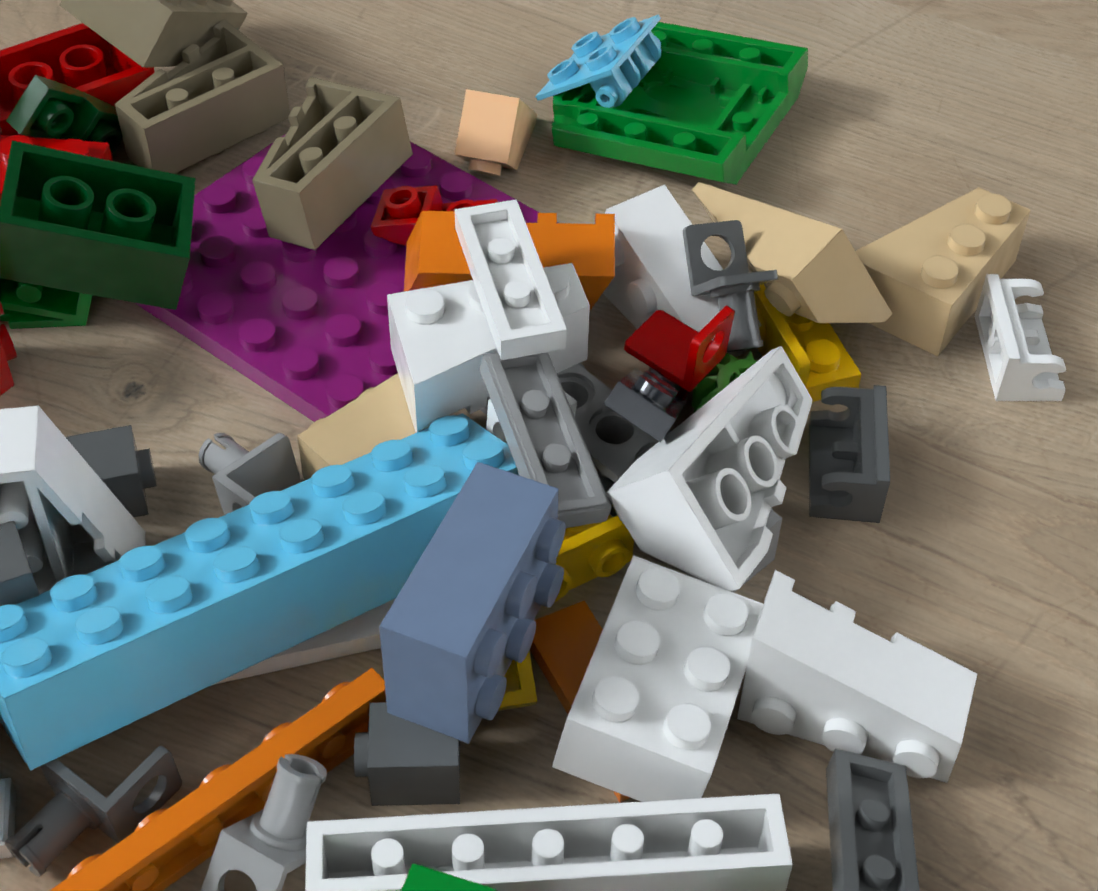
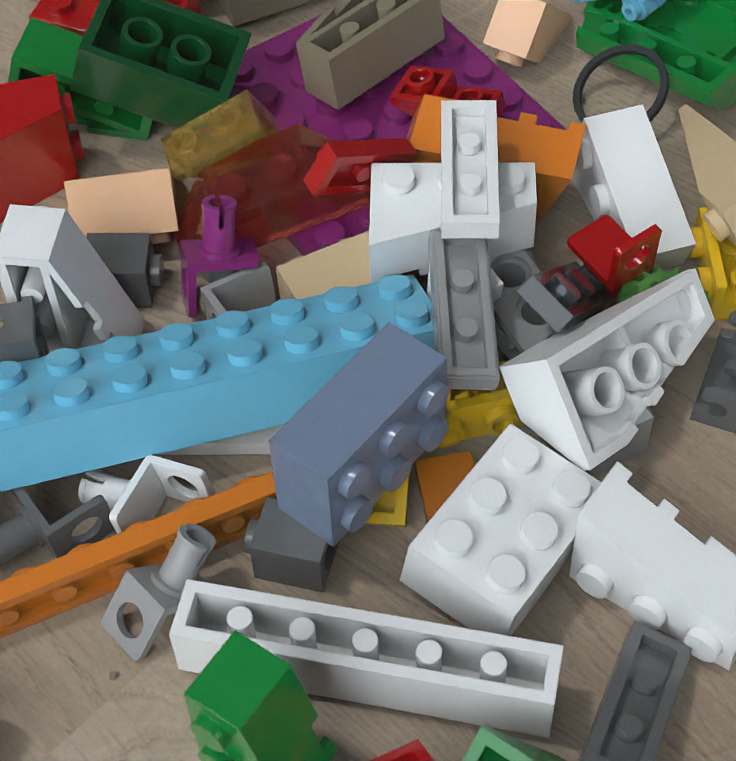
camera: 20 degrees right, 5 degrees up
(94, 394) = (125, 203): none -> light nougat slope
(184, 301) = (217, 135): none -> clear yellow bracket
(206, 740) = (146, 491): none -> white bracket
(221, 431) = (216, 251): none -> magenta bracket
(260, 357) = (268, 189): none -> clear red wedge
(358, 302) = (347, 164): none -> red plate
(600, 142) = (613, 52): none -> black piece
(730, 286) = (671, 205): dark grey bracket -> none

